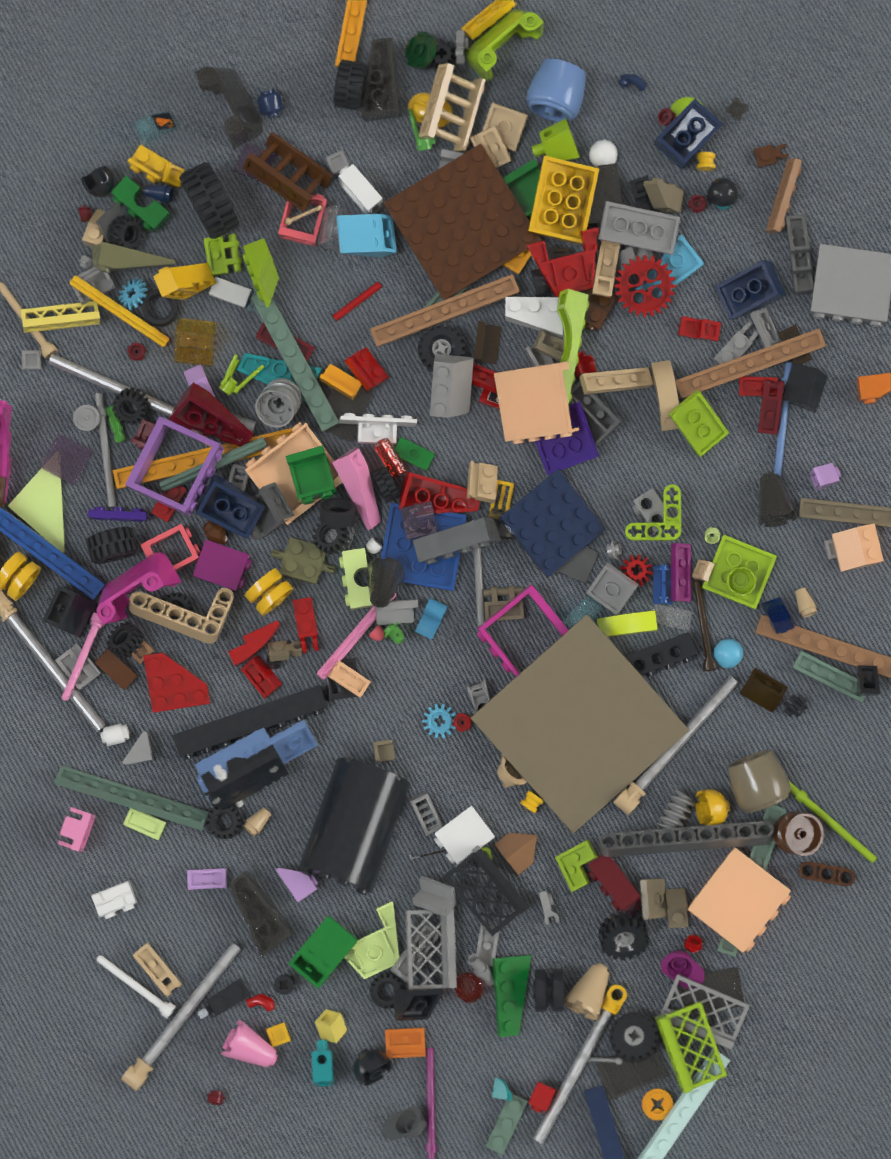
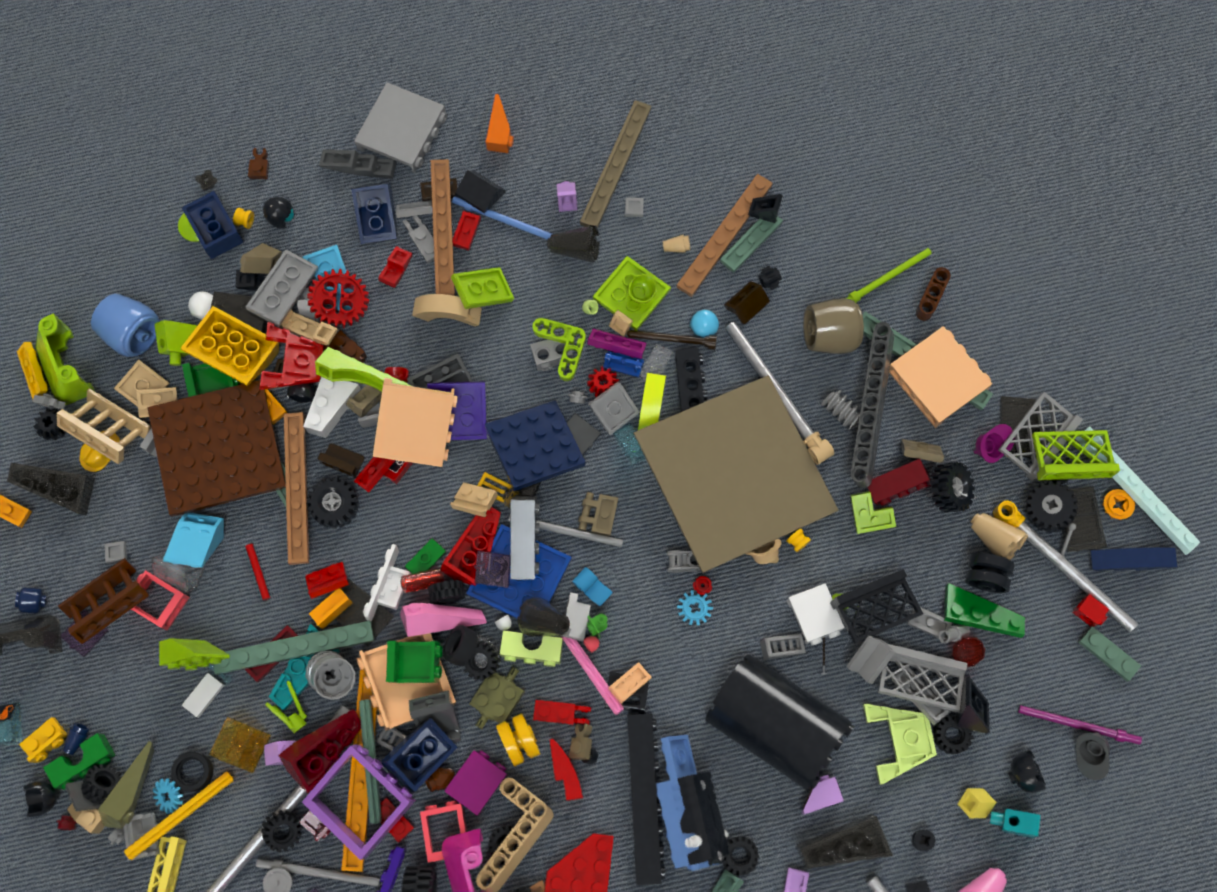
camera: 75 degrees left, 10 degrees down
(116, 425) = (296, 853): bright green axle -> none
(131, 351) = (222, 809): dark red plate -> none
(172, 174) = (63, 719): yellow tile -> none
(184, 281) = (172, 736): yellow wedge -> none
(209, 200) = (99, 685): black tyre -> none
(216, 255) = (160, 697): lime plate -> none
(257, 821) = (750, 822): tan cone -> none
(261, 676) = (601, 774): red slope -> none
(262, 1000) = (934, 868): red arm -> none
(278, 1034) = (972, 861): yellow tile -> none
(288, 221) = (152, 613): tan hinge -> none
(323, 952) = (902, 788): green slope -> none
(349, 84) = (42, 514): black tyre -> none
(360, 190) = (148, 534): white window -> none
(384, 750) = (710, 670): dark tan panel -> none
(405, 1042) = (1009, 731): orange plate -> none
(420, 50) = (37, 440): dark green tile -> none
(422, 144) = (126, 465): bright green plant -> none
(451, 385) = (370, 501): light grey slope -> none
(501, 1090) = (1076, 649): teal tile -> none
(518, 850) = (841, 567): medium nougat slope -> none
(542, 605) = (615, 474): dark pink window -> none
(546, 902) = (898, 553): light grey plate -> none
(616, 380) = (418, 348): tan plate -> none
(632, 79) = (143, 260): dark blue arm -> none
(662, 117) = (185, 241): dark red plate -> none
(676, 908) = (933, 434): dark tan slope -> none
(692, 203) = (279, 232): dark red plate -> none
(693, 943) = (971, 429): red plate -> none
(711, 807) = (847, 376): yellow cylinder -> none
(770, 407) = (488, 223): dark red plate -> none
(778, 615) = (683, 267): clear blue slope -> none
(786, 189) = (300, 161): medium nougat plate -> none
(798, 833) = (891, 304): wheel -> none
(857, 547) = (640, 185): light nougat slope -> none

